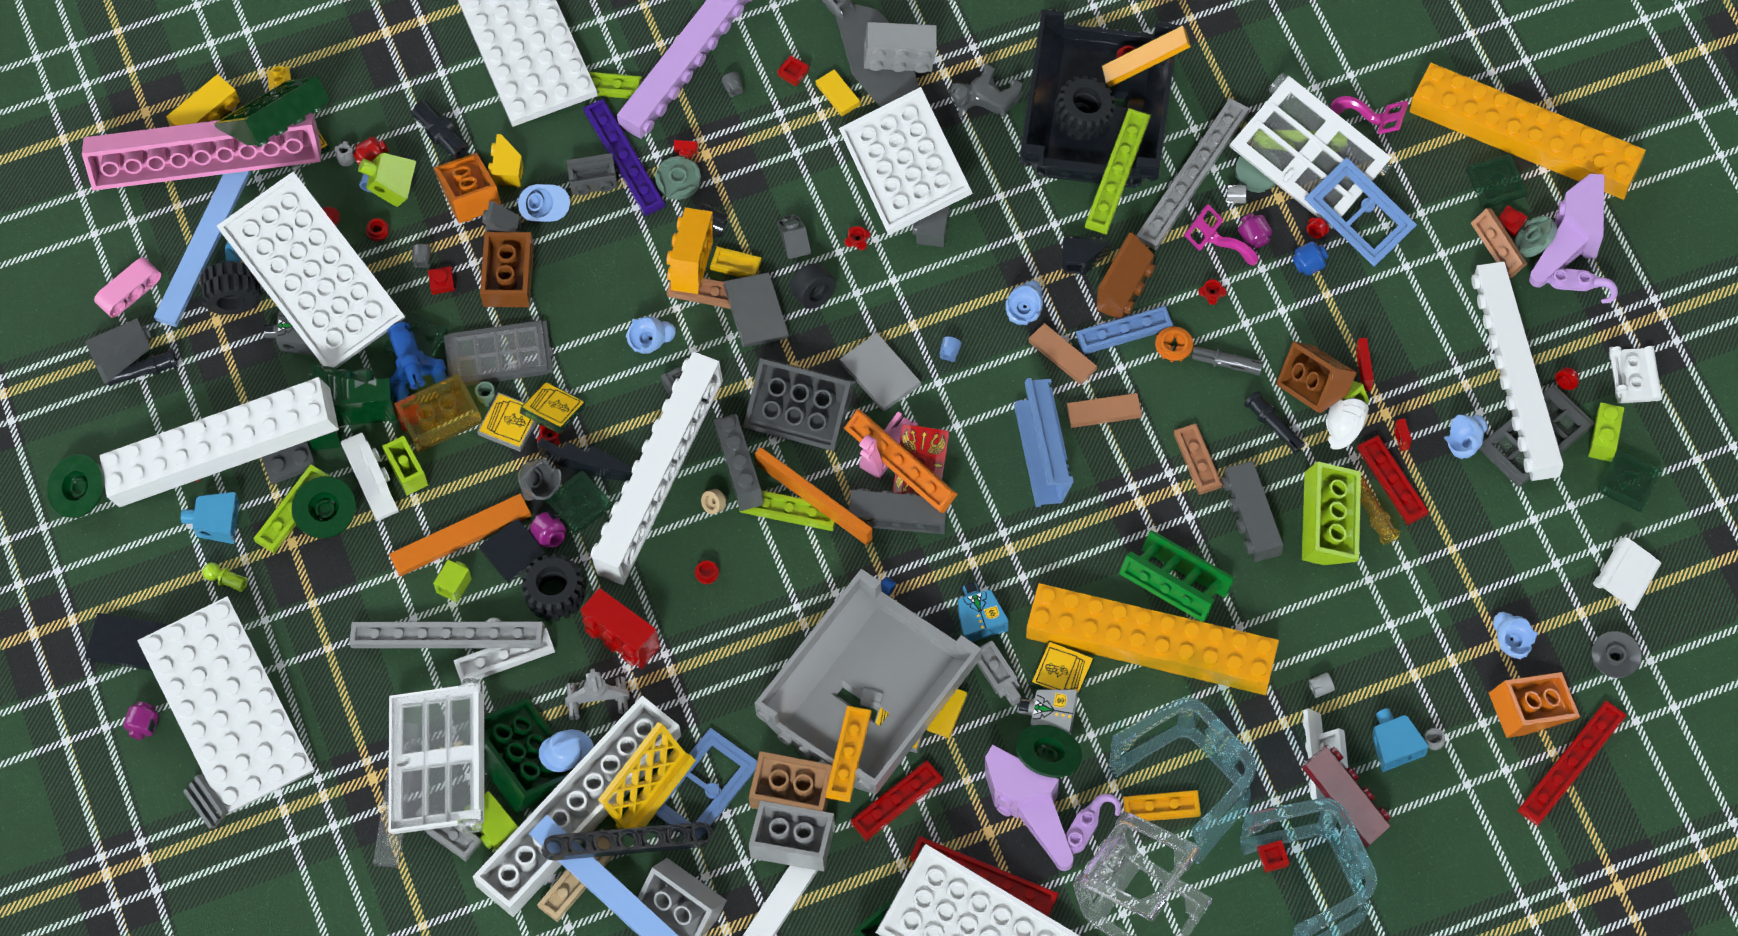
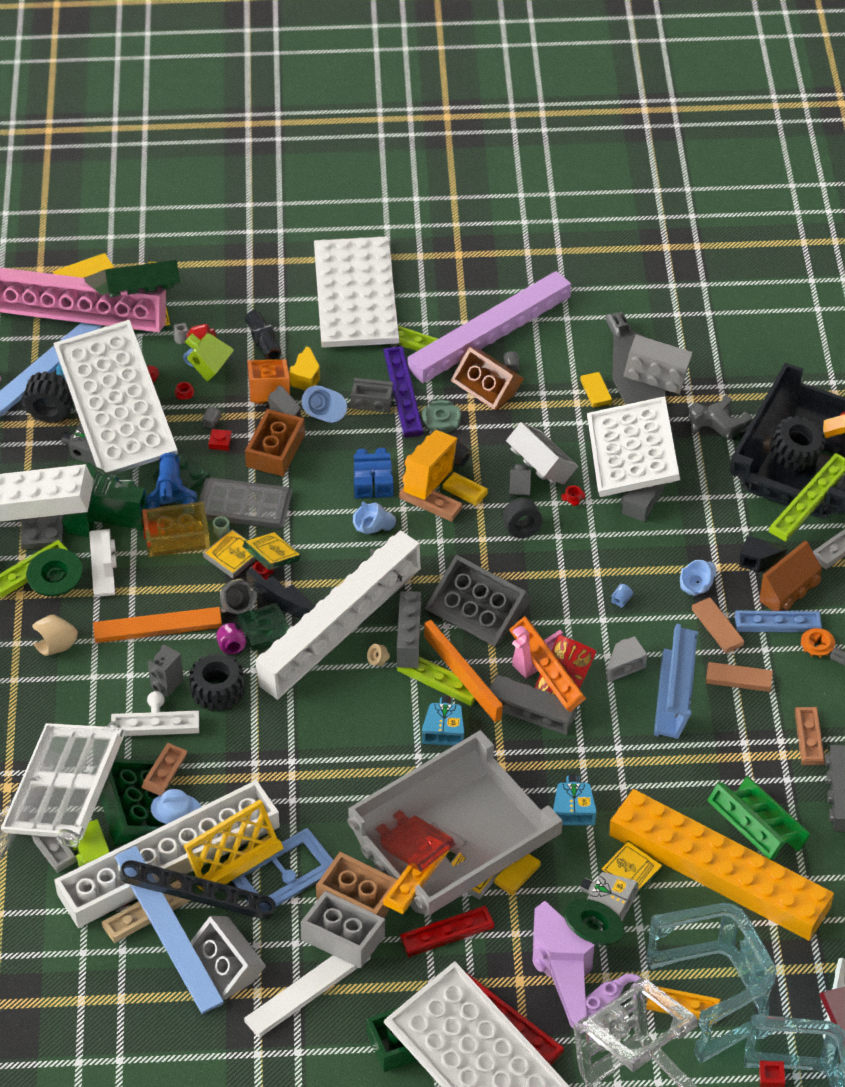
camera: 15 degrees right, 15 degrees down
(355, 584) = (57, 635): none -> tan piece
(405, 465) = (133, 559): lime brick -> none
(447, 635) = (114, 692): light grey plate -> none
(452, 580) = (136, 654): lime brick -> none
(495, 593) = (166, 671): none -> dark grey hinge
(511, 550) = (194, 644): black tile -> none
(536, 709) = (164, 769): none -> nougat plate
(596, 690) = (219, 768): light grey axle -> none
(619, 629) = (259, 726): red brick -> none
(626, 267) = (372, 466): none -> blue hips
(686, 148) = (456, 395): red plate -> none
(706, 572) = (351, 707): red plate -> none
(712, 115) = (486, 378): none -> dark orange slope
(755, 309) = (468, 524): dark grey tile -> none
(793, 70) = (564, 364): red plate -> none
(808, 199) = (541, 454): none -> brick
(813, 562) = (443, 723): none -> dark azure torso
(834, 716) = (414, 841): none -> clear red tile
(880, 372) = (556, 598): light grey tile -> none
(888, 586) = (502, 758): blue axle -> none
(980, 425) = (626, 659): none -> light grey slope
(999, 673) = (573, 853): light grey hinge -> none

